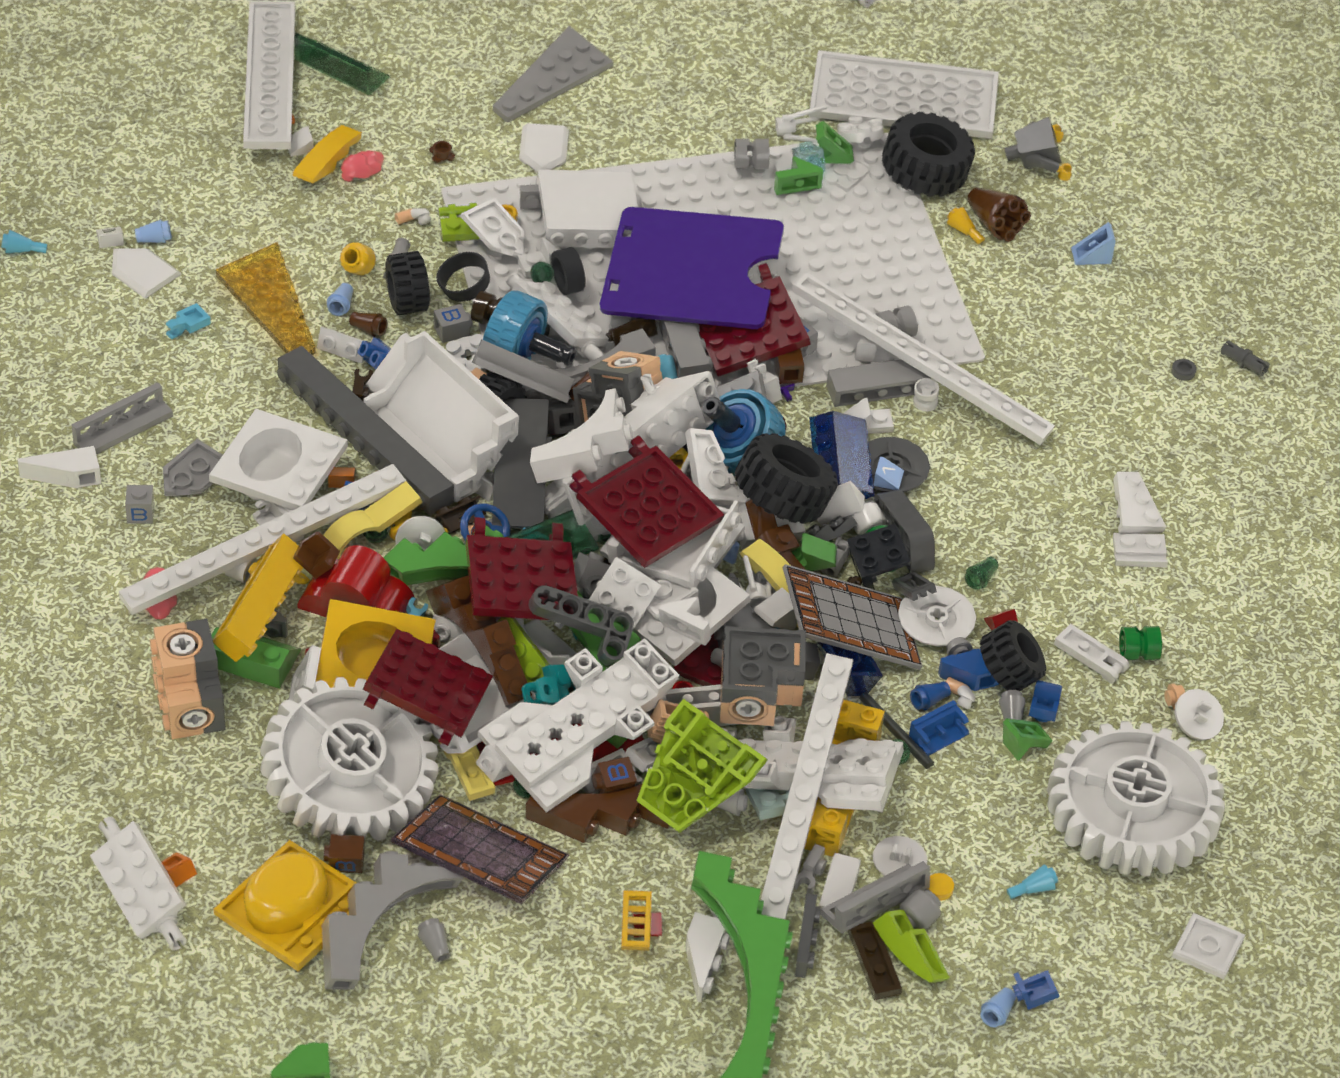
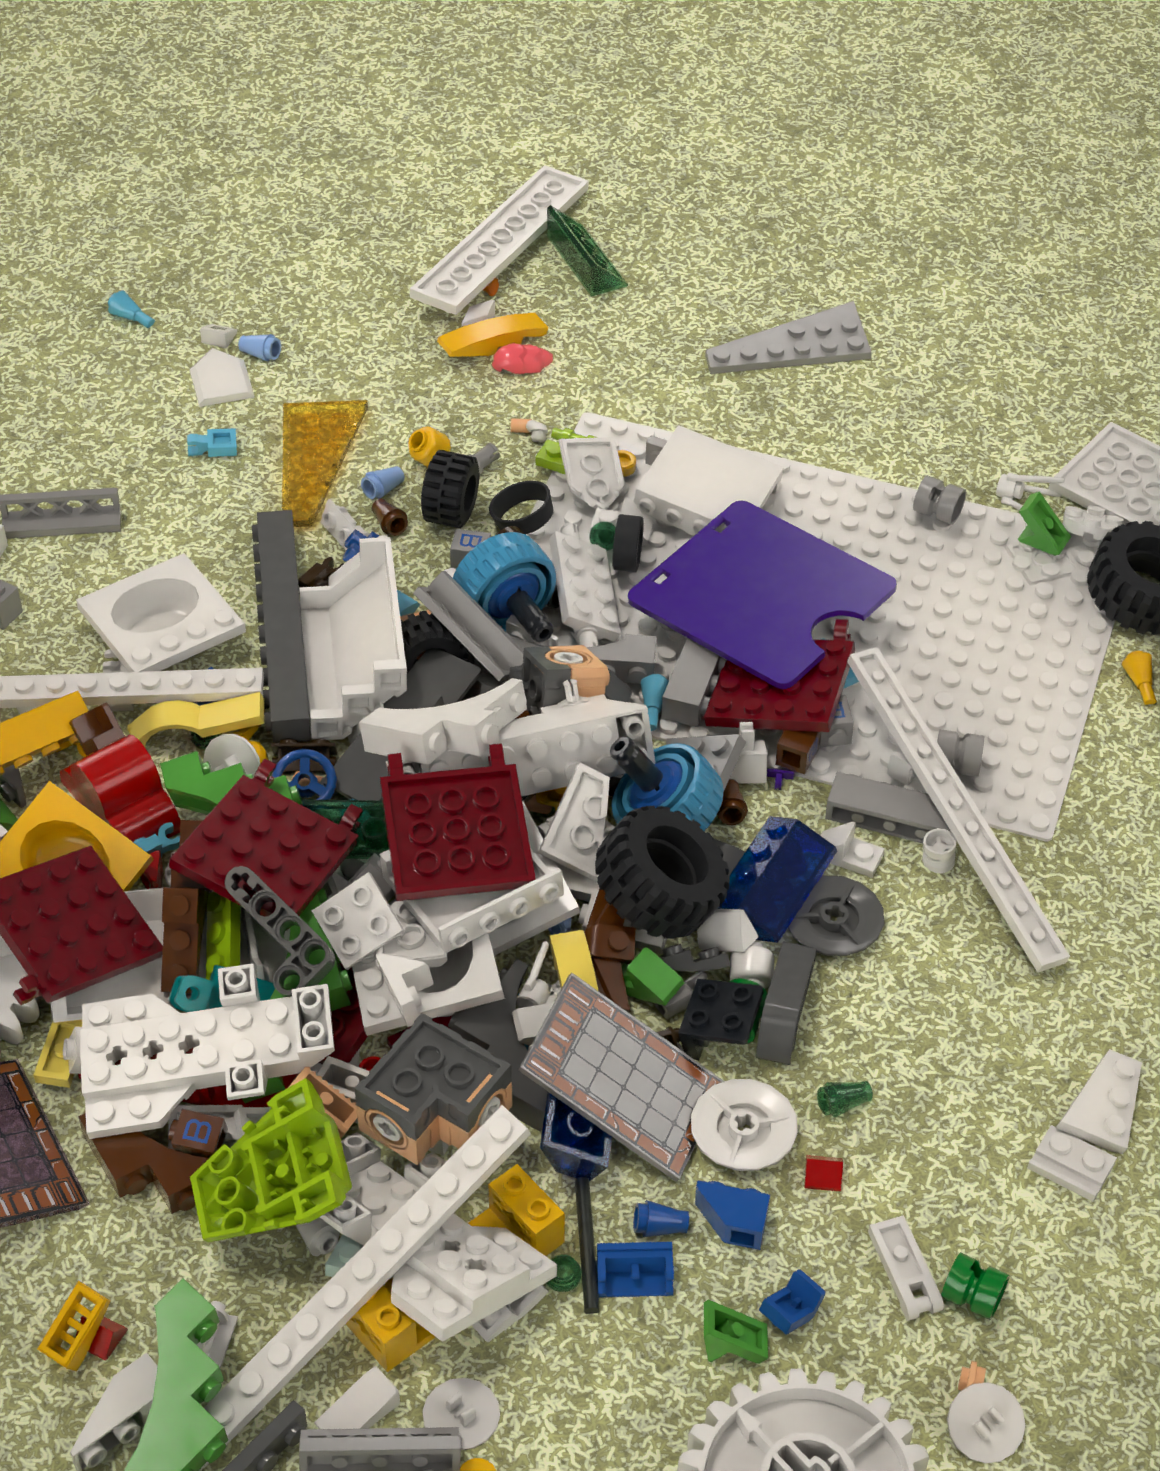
camera: 35 degrees right, 0 degrees up
(190, 470) = (76, 585): light grey tile -> none
(339, 475) = (223, 659): orange slope -> none
(441, 151) = (614, 376): reddish brown plate -> none
(543, 146) = (728, 411): white tile -> none
(647, 325) = (666, 638): dark brown hinge -> none
(799, 178) = (980, 548): bright green slope -> none
(810, 153) = (1006, 531): clear light blue bracket -> none
(812, 866) = (339, 1367): light grey plate -> none
(888, 475) = (813, 924): light blue slope -> none
(910, 588) = (740, 1080): dark grey tile -> none
(958, 645) = (739, 1176): light grey plate -> none
(962, 690) = (705, 1237): white arm -> none
(1012, 704) = (748, 1288): light grey cone -> none
(1013, 656) = (784, 1222): black tyre -> none

